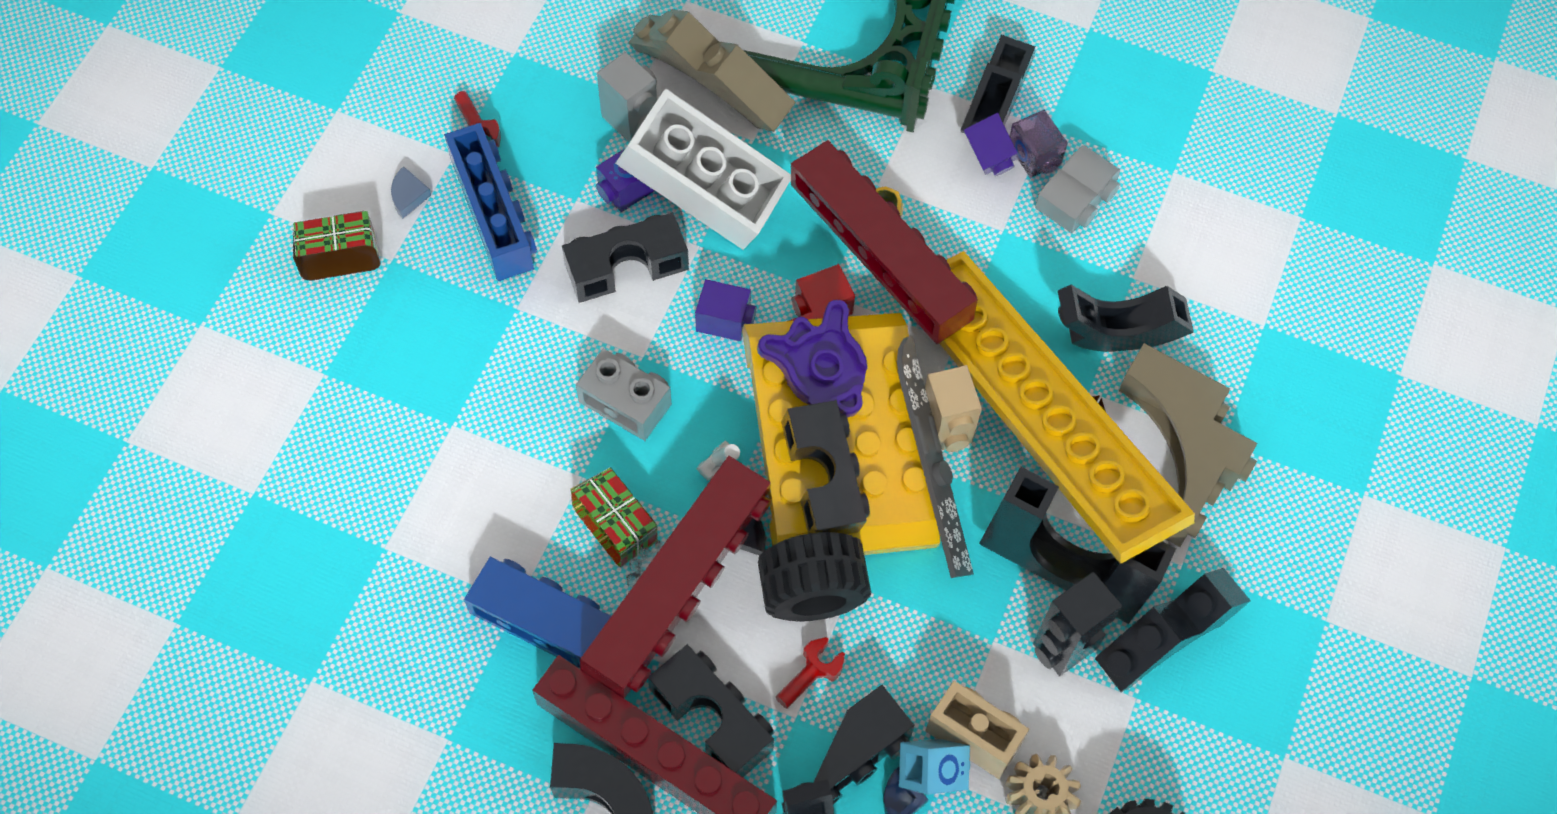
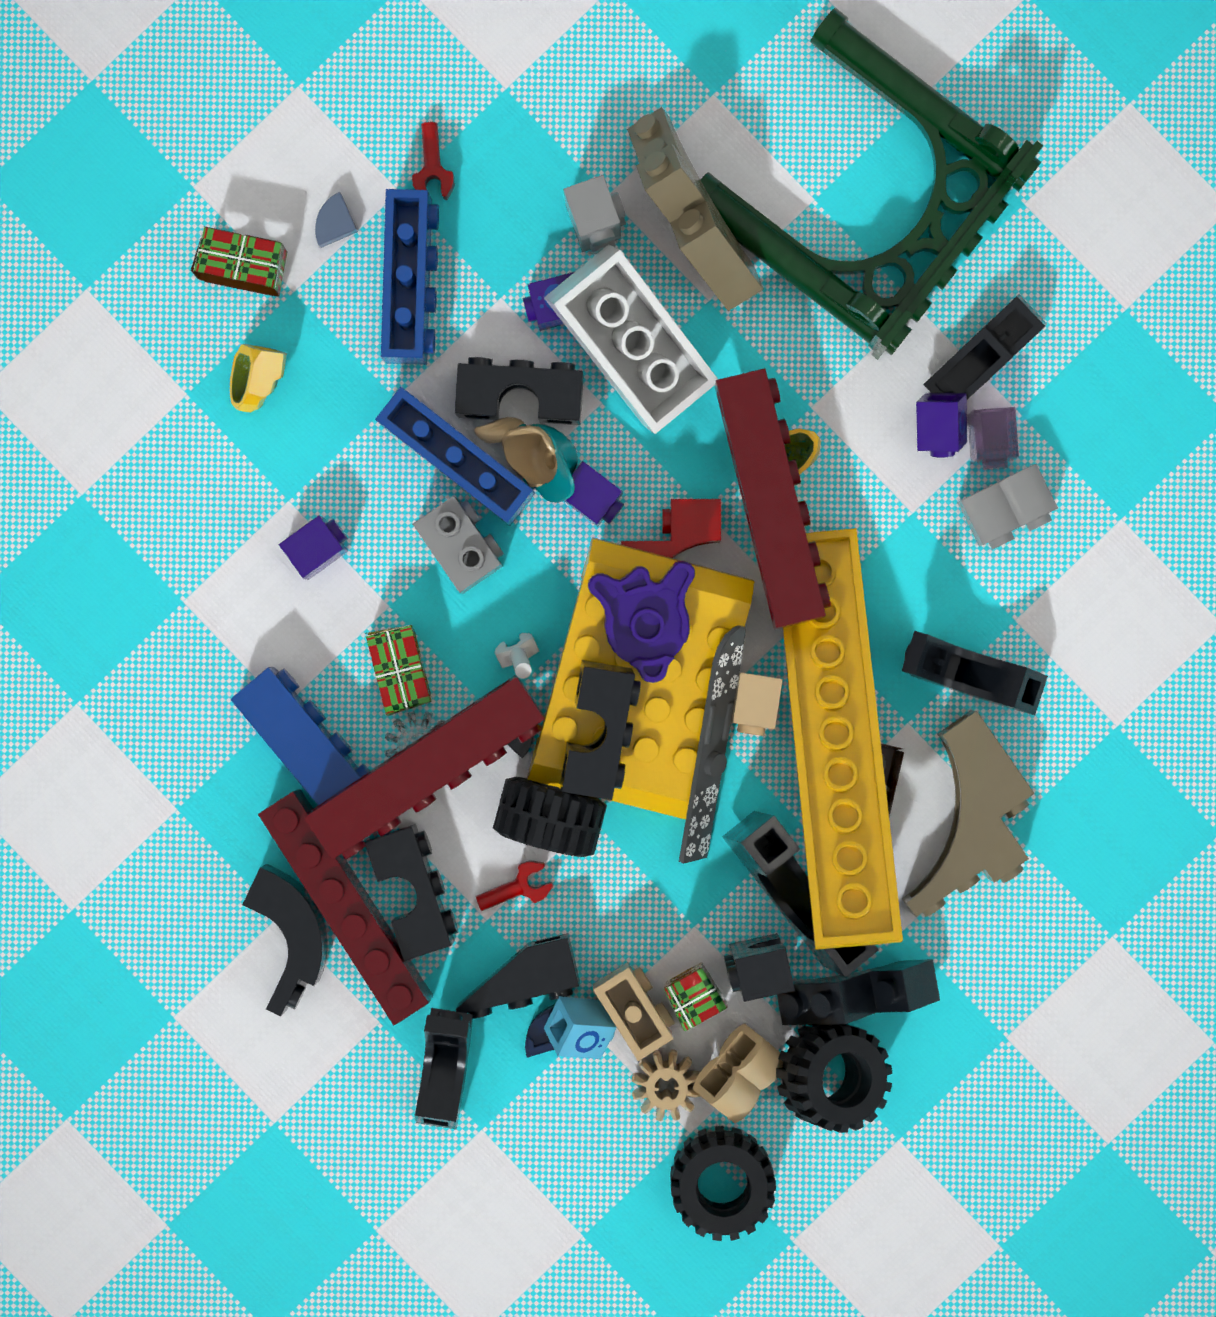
camera: 25 degrees right, 25 degrees up
(382, 326) = (255, 376): none -> yellow rock
(492, 445) = (315, 546): none -> dark purple brick
(591, 319) = (455, 456): none -> blue brick
(661, 293) = (536, 454): none -> tan hair
(1027, 686) = (694, 996): none -> piece
(1106, 745) = (738, 1073): none -> tan brick
(1177, 724) = (863, 1080): none -> black tyre

